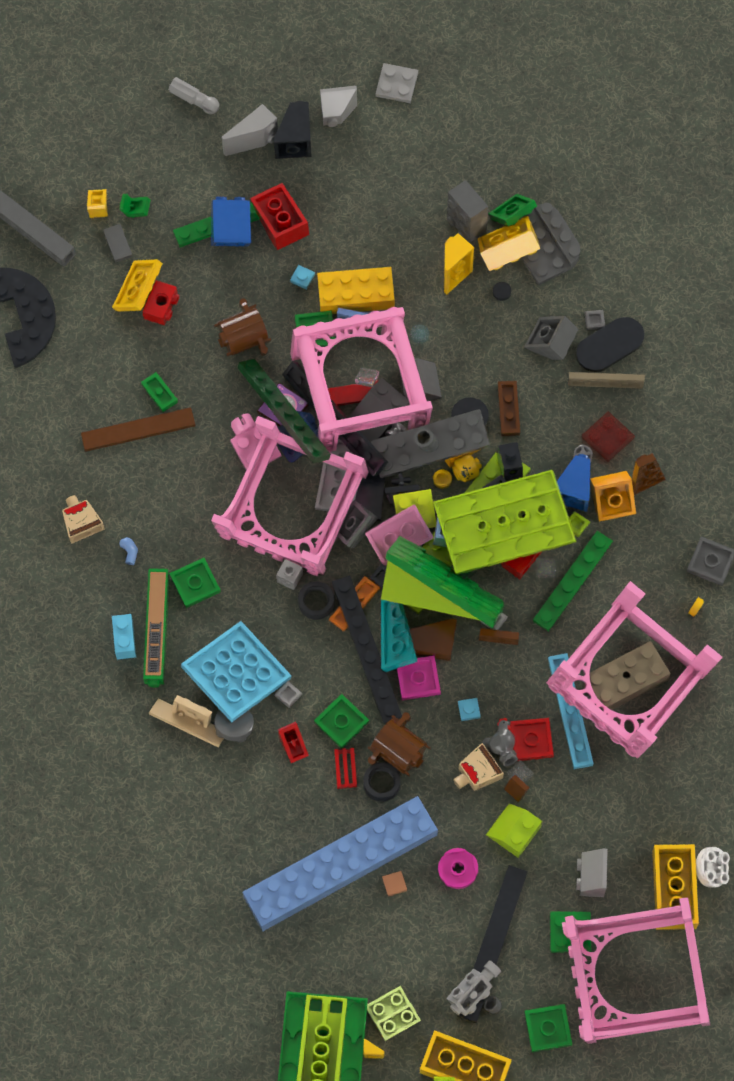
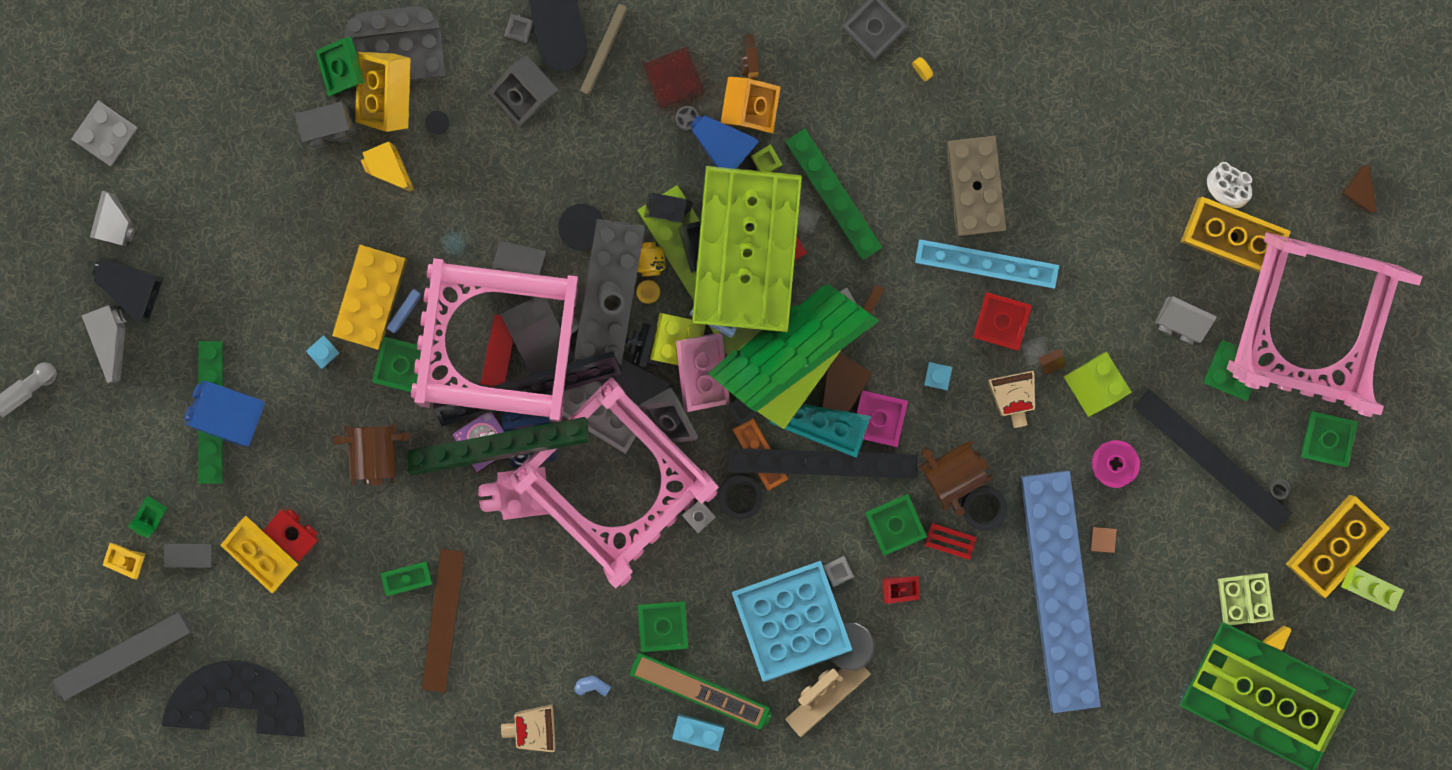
camera: 70 degrees left, 20 degrees up
(280, 216) = (234, 349): red slope -> none
(367, 377) = (486, 328): clear tile -> none
(472, 989) = (1258, 507): light grey brick -> none
(502, 743) = (996, 357): dark grey animal -> none
(508, 408) = (592, 178): reddish brown plate -> none
(567, 673) = (1058, 202): bright pink arch -> none

